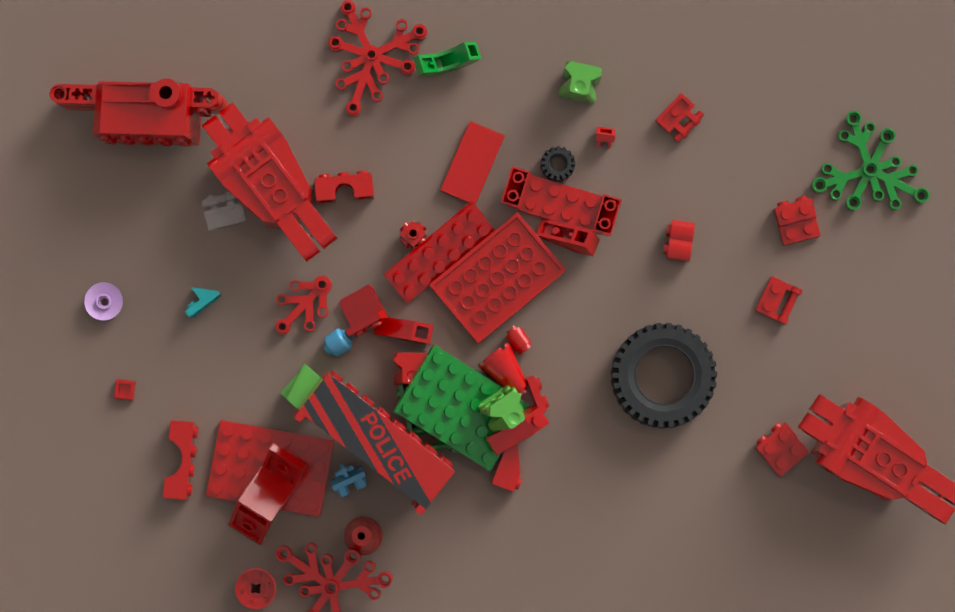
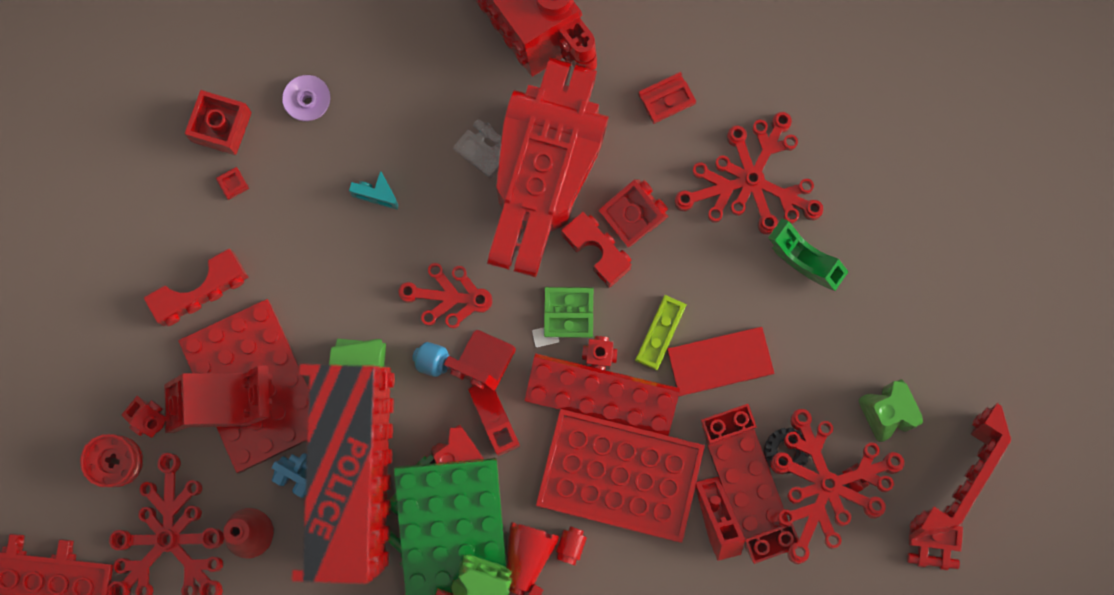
camera: 60 degrees right, 5 degrees down
(78, 370) = (218, 122): none -> red brick
(241, 549) = (144, 417): none -> red brick
(277, 69) = (667, 97): none -> red plate
(337, 145) = (634, 212): none -> red plate
(370, 234) = (568, 312): none -> bright green slope
(375, 260) = (540, 340): none -> white sticker
(426, 186) = (660, 332): none -> lime tile
(608, 174) = (817, 511): none -> red plant
(635, 31) = (991, 430): none -> red slope

